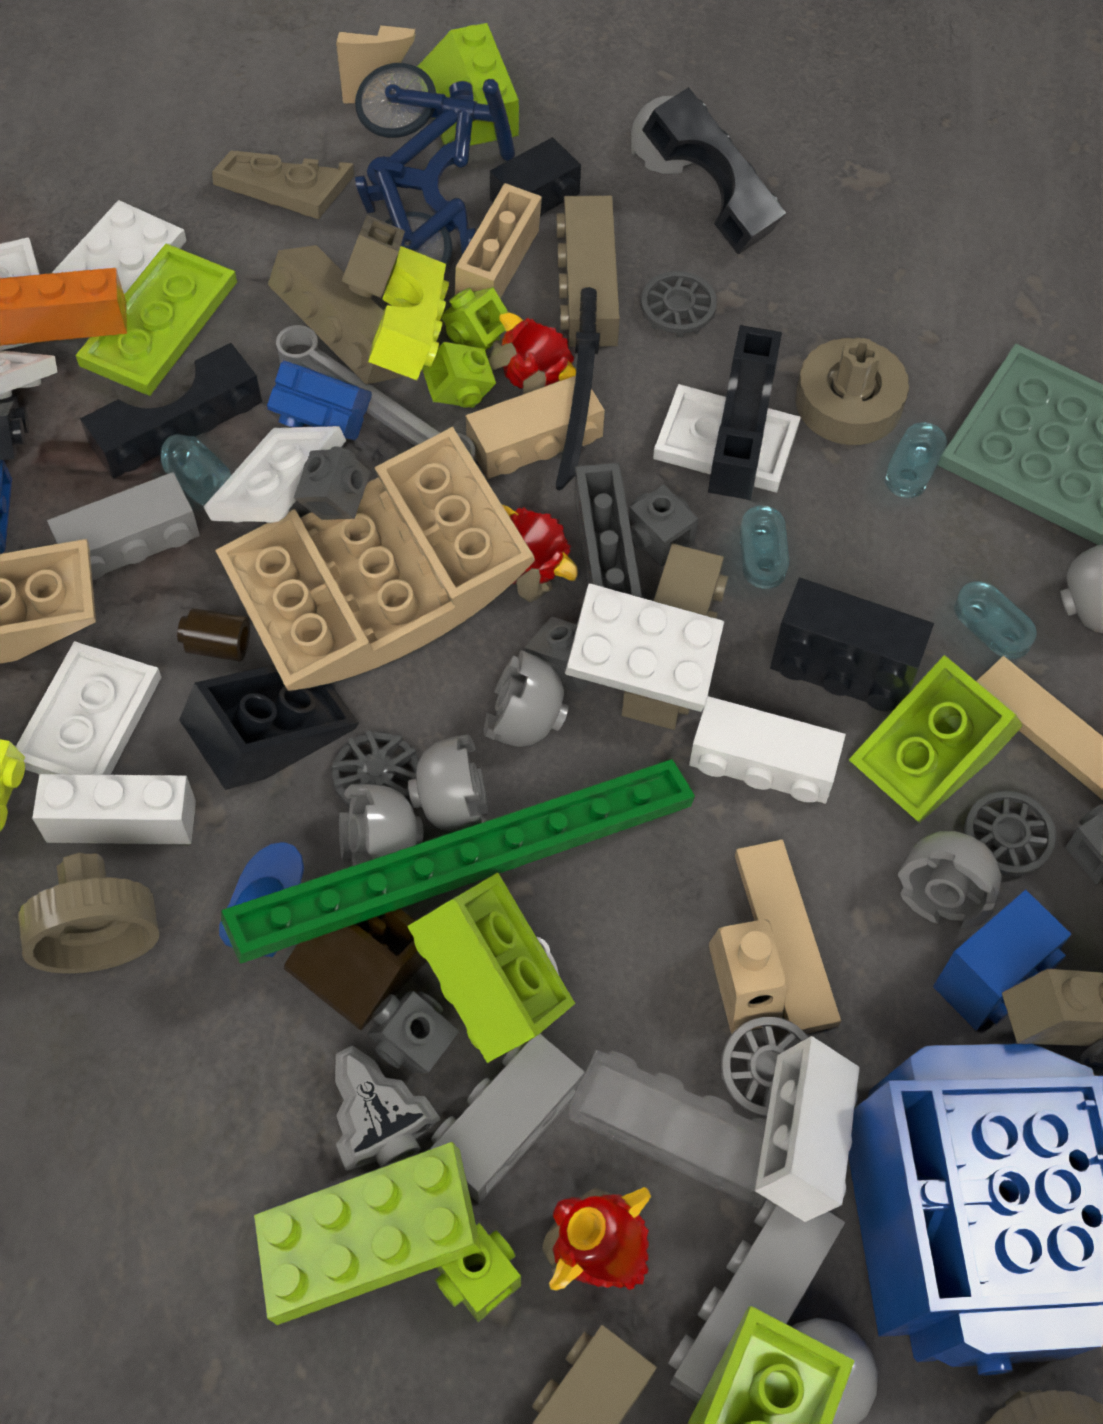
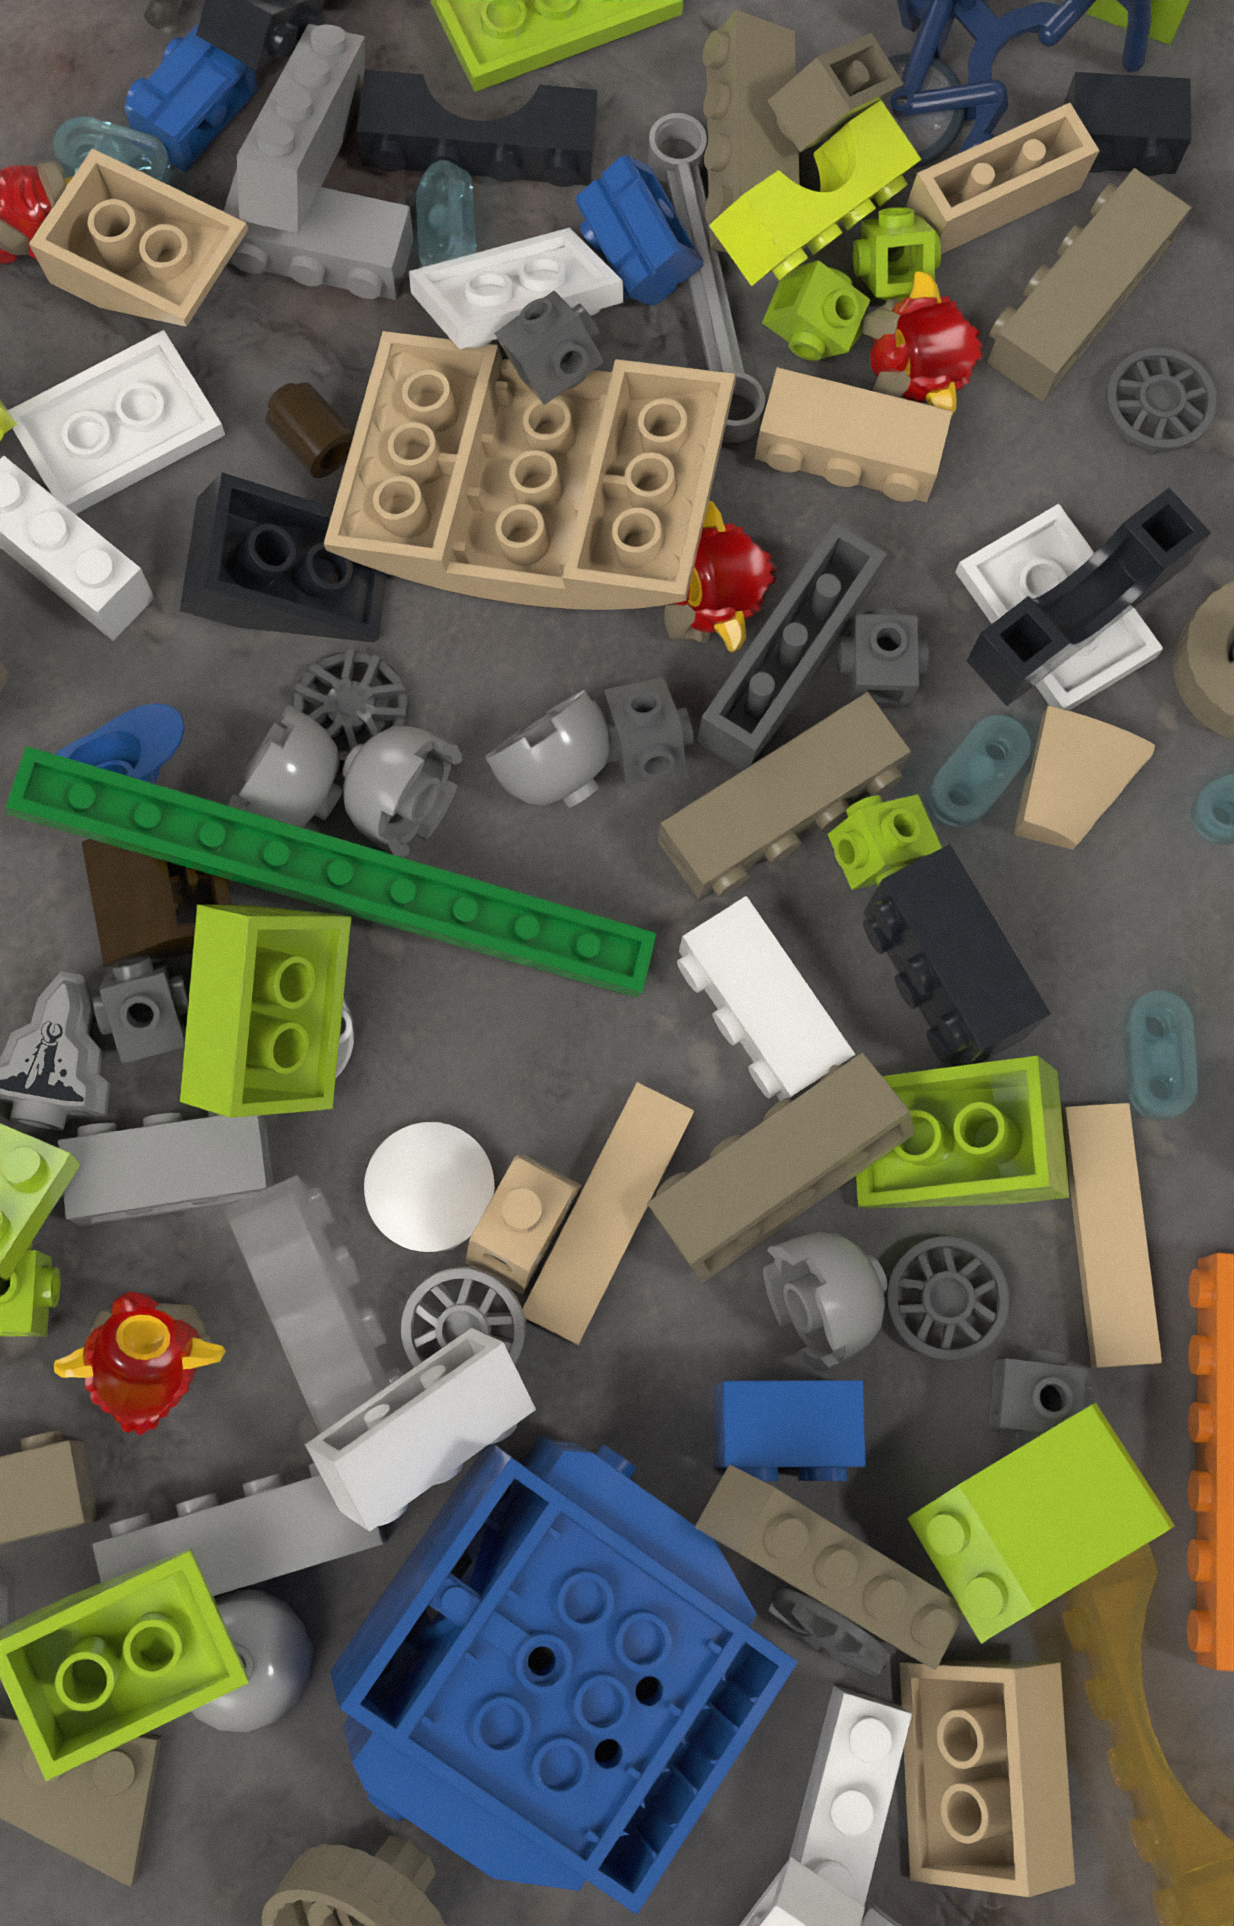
camera: 35 degrees right, 15 degrees up
(73, 469) = (301, 128): none -> light grey brick
(586, 346) = (985, 380): black sword -> none
(644, 647) = (718, 790): white plate -> none
(672, 1004) = (428, 1186): none -> white dish
(752, 616) = (869, 841): none -> lime brick
(816, 515) = (1076, 776): none -> tan slope
(861, 828) = (781, 1166): none -> dark tan brick

